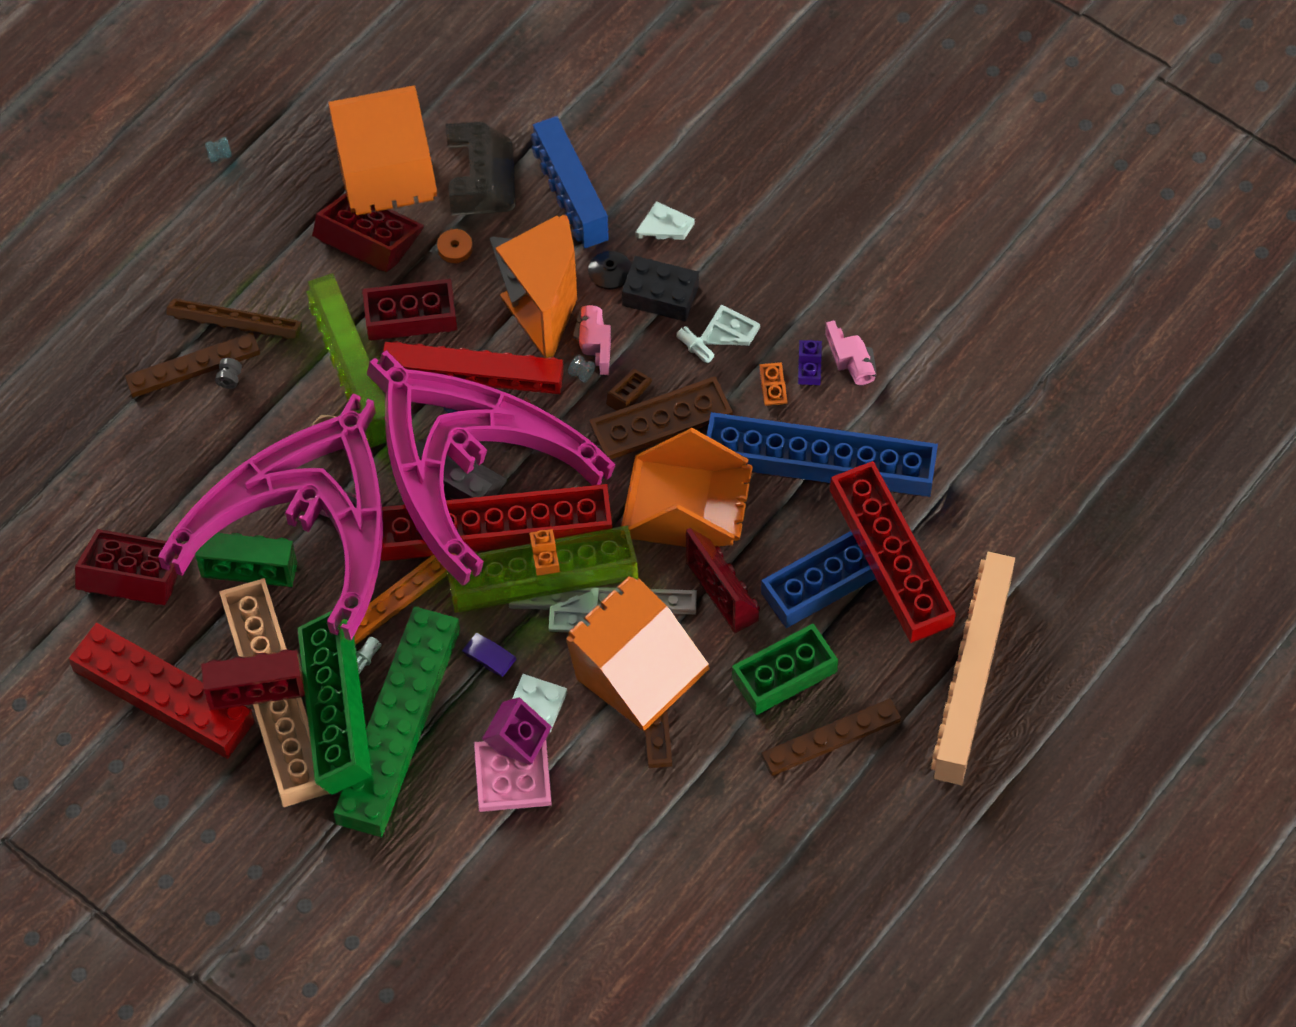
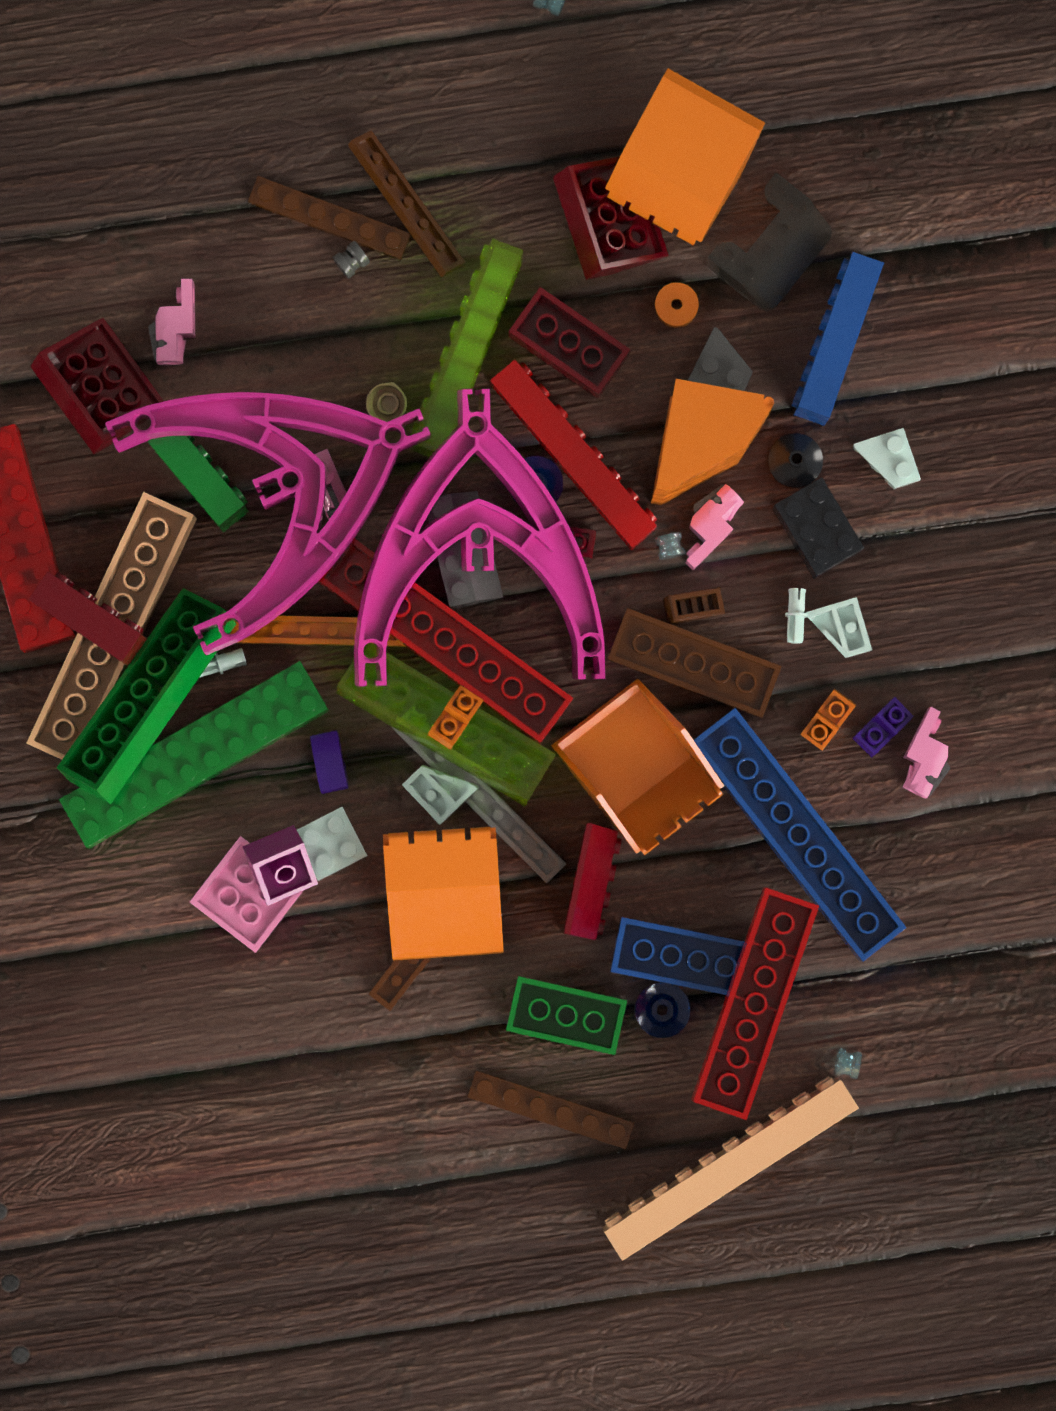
camera: 35 degrees right, 25 degrees up
(150, 494) = (173, 325): none -> bright pink plate
(840, 610) = (677, 1010): none -> clear blue dish
(980, 552) = (848, 1063): none -> clear light blue wheel

